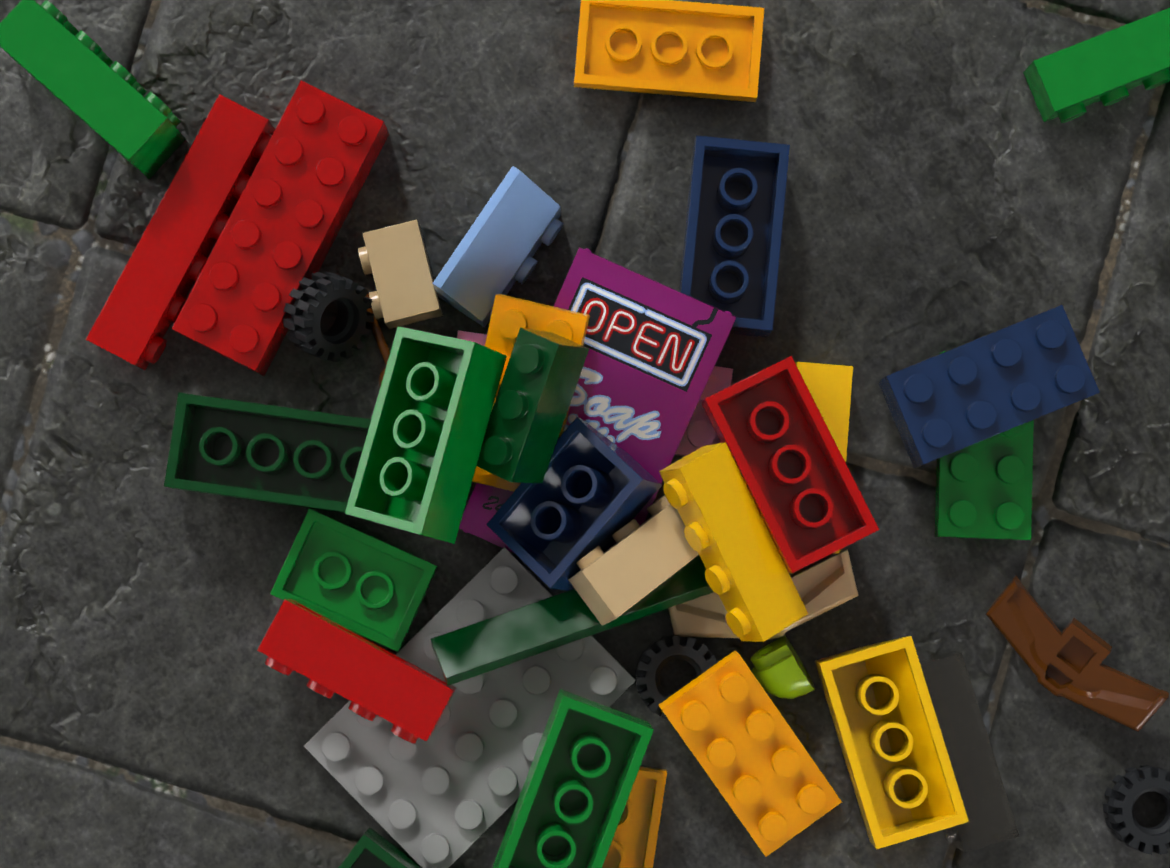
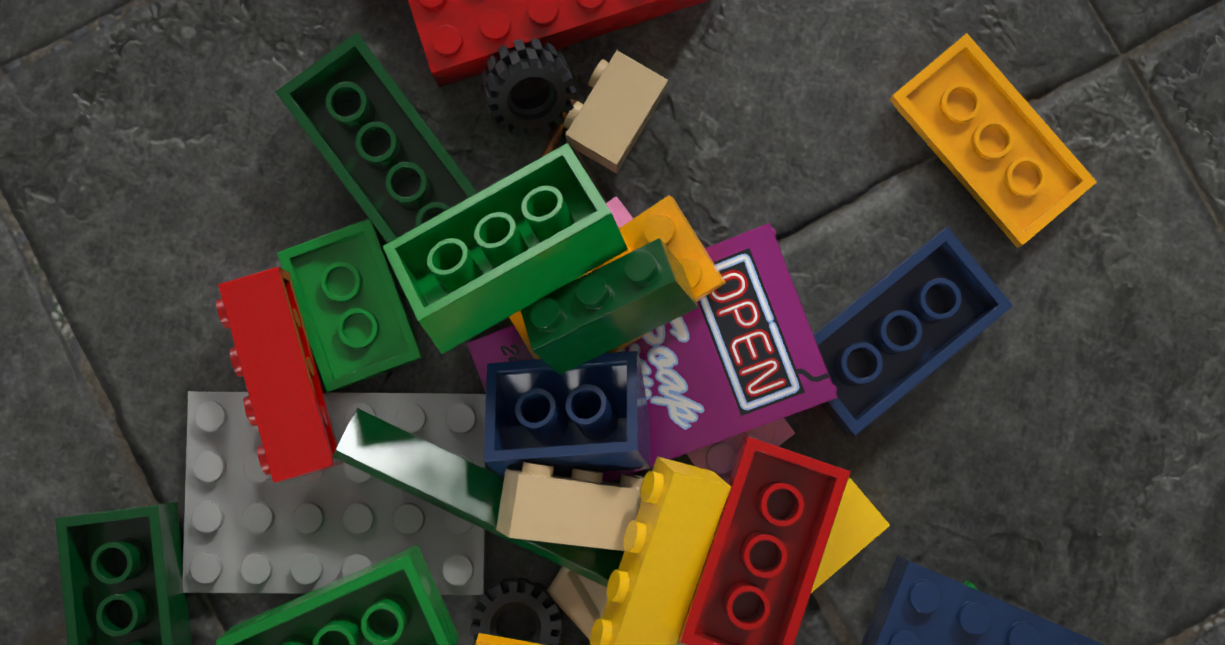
camera: 50 degrees right, 0 degrees up
(499, 247) = (710, 161): light blue slope -> none

